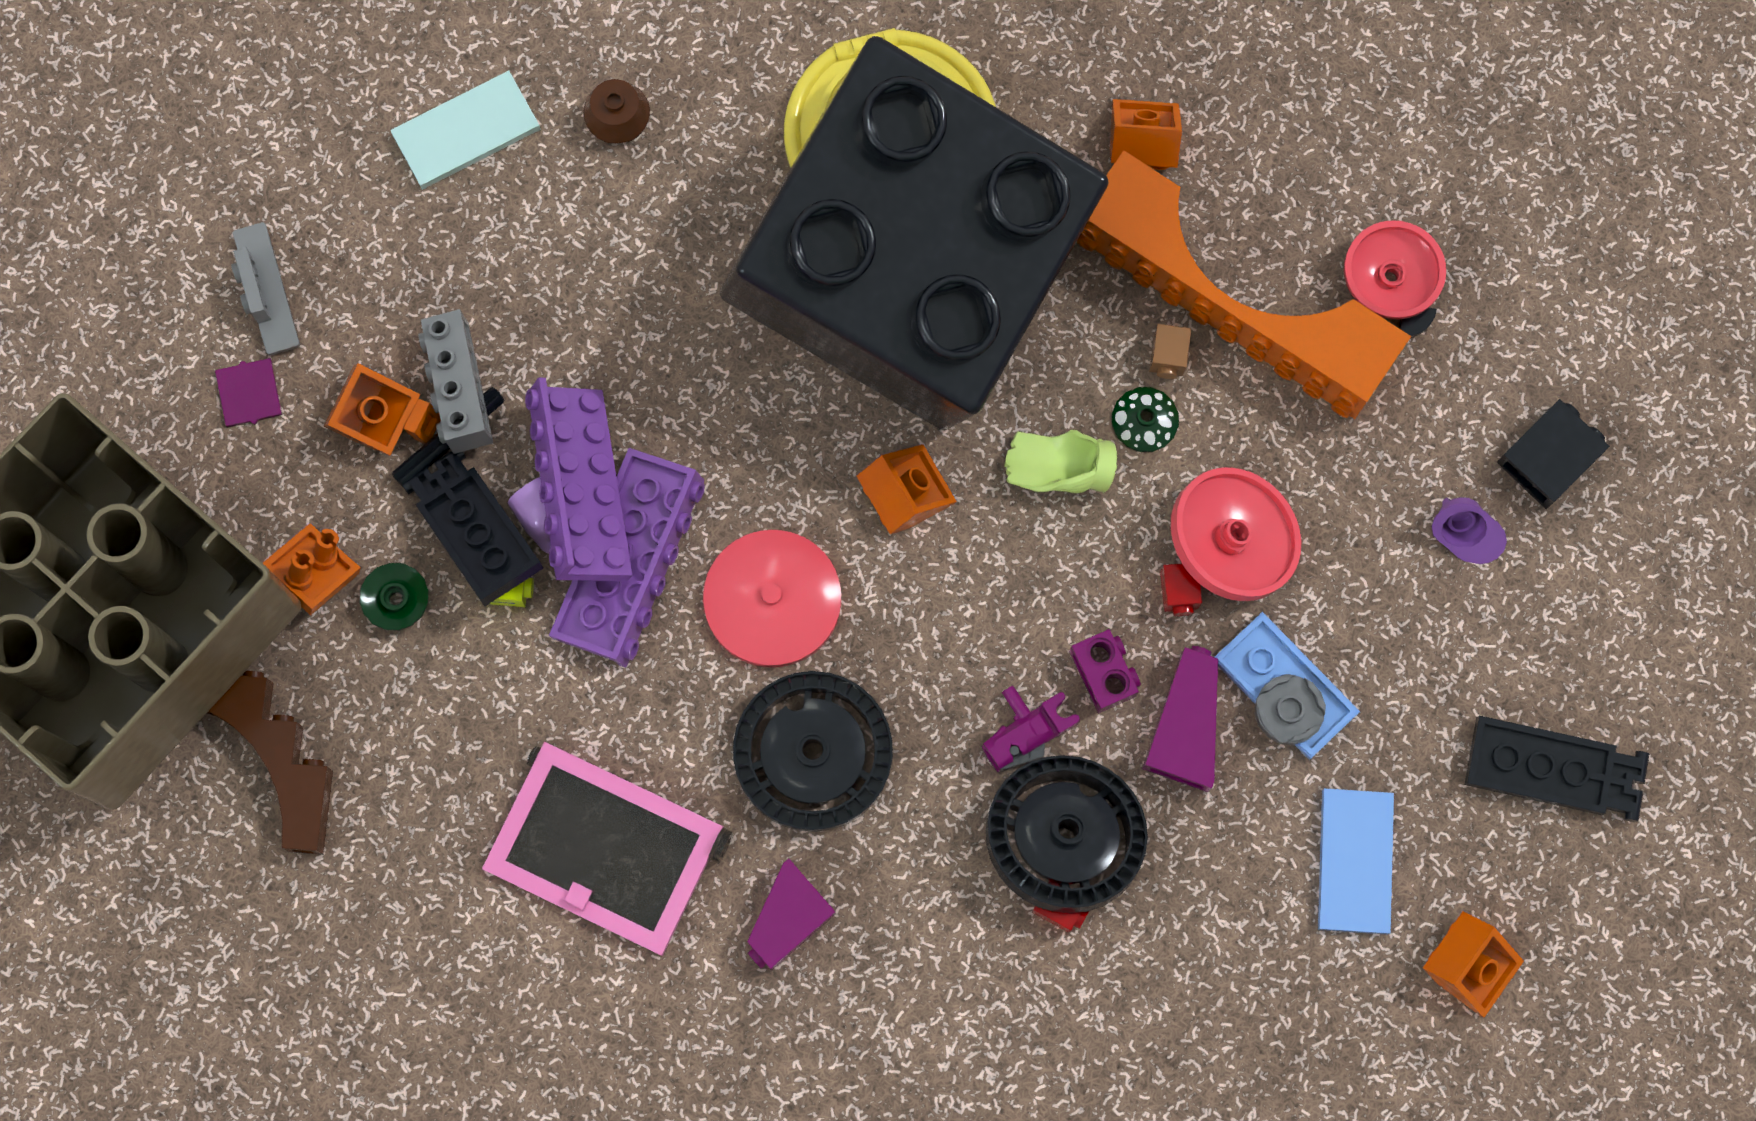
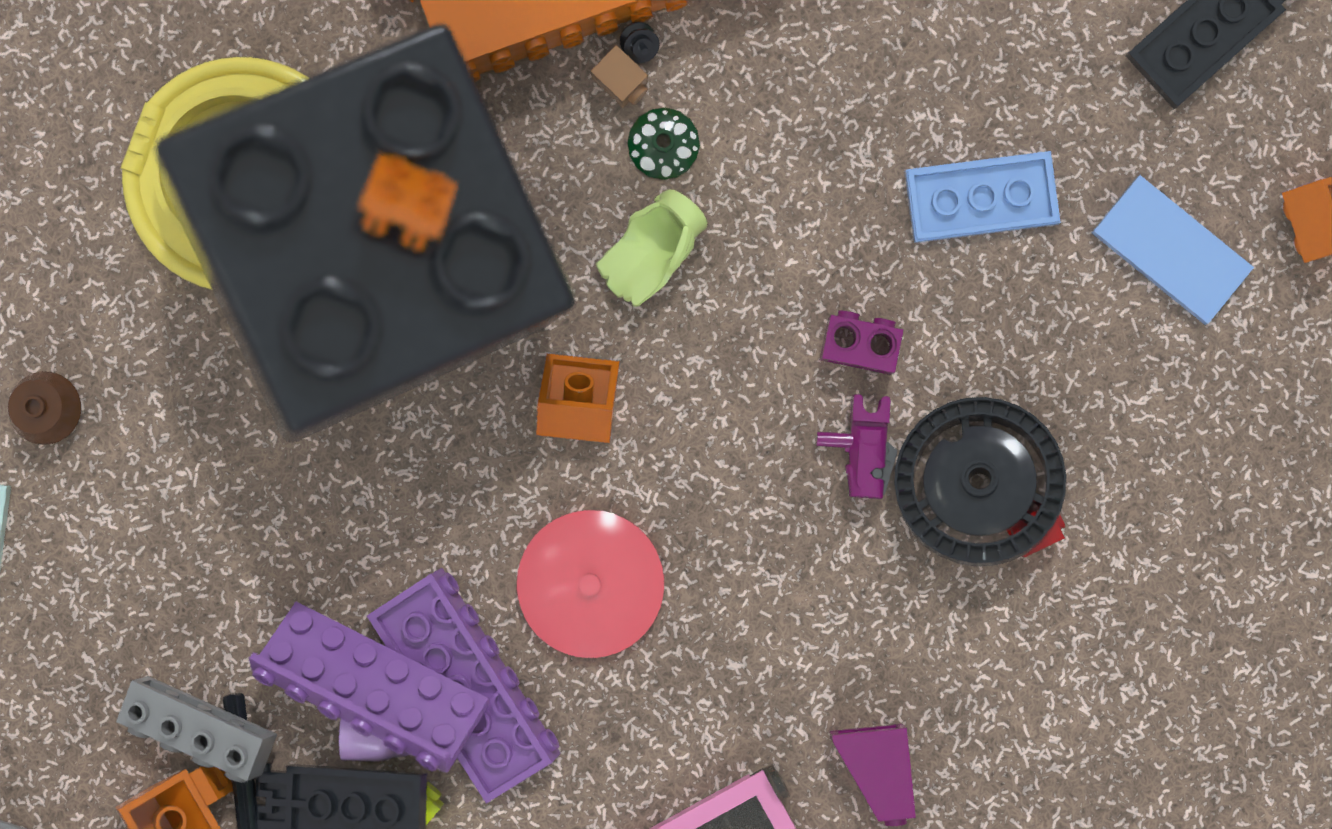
camera: 50 degrees left, 10 degrees up
(819, 778) = (759, 675): black piece -> none
(964, 230) = (408, 198): none -> orange plate
(1179, 590) = (837, 225): red brick -> none
(1187, 724) = (956, 306): magenta slope -> none
(1206, 346) = (639, 42): none -> black wheel
(1235, 534) = (825, 143): coral dish -> none
(1290, 709) = (1008, 210): flat silver tile -> none

